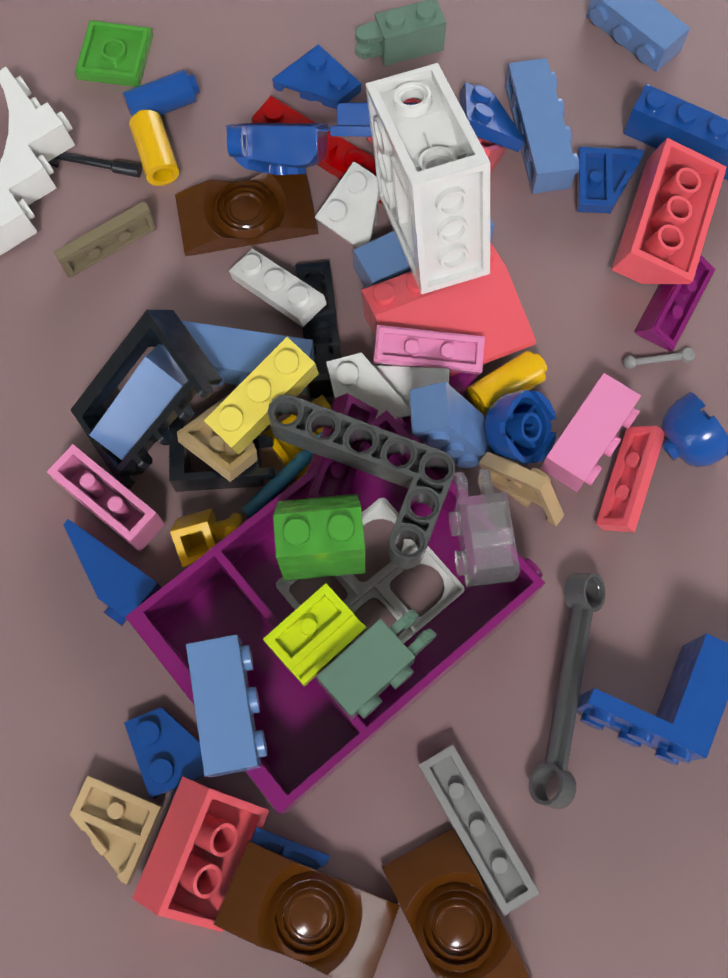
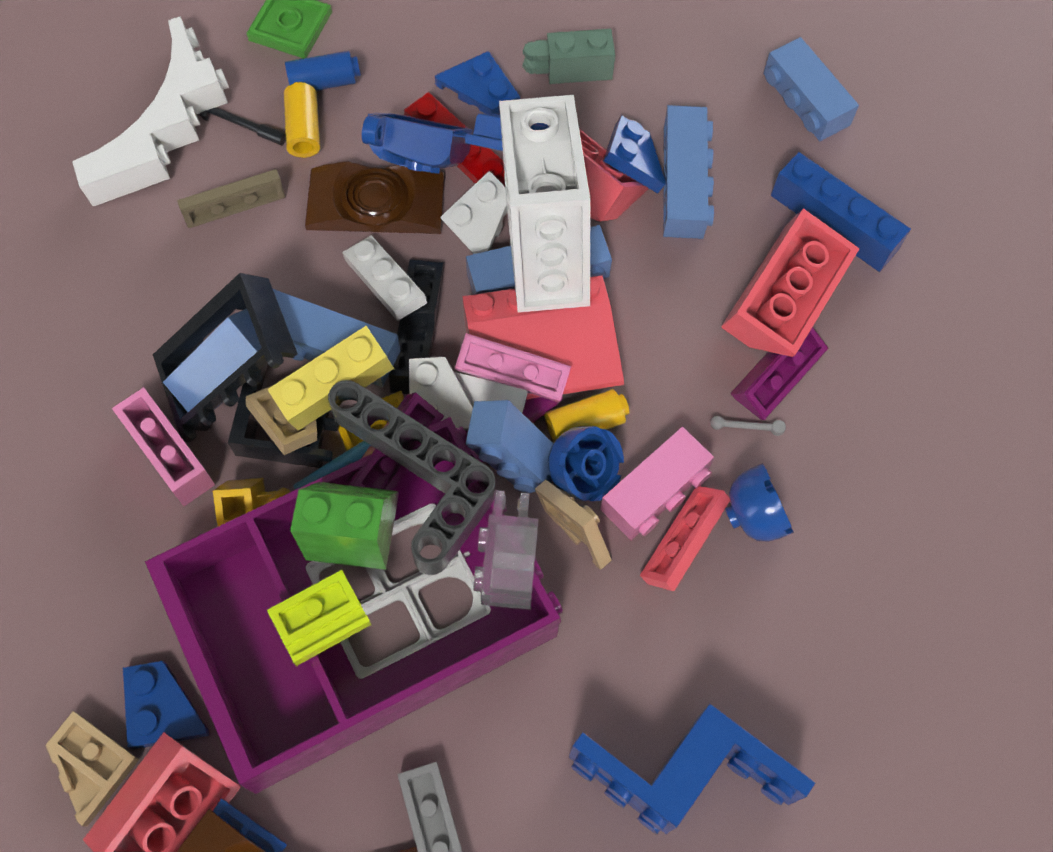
camera: 10 degrees right, 5 degrees down
(111, 576) = (147, 522): blue slope -> none
(225, 706) = (213, 667): medium blue brick -> none
(372, 665) = (366, 659): sand green hinge -> none
(583, 595) = (565, 736): dark grey piece -> none
(604, 177) = (738, 234): blue wing -> none

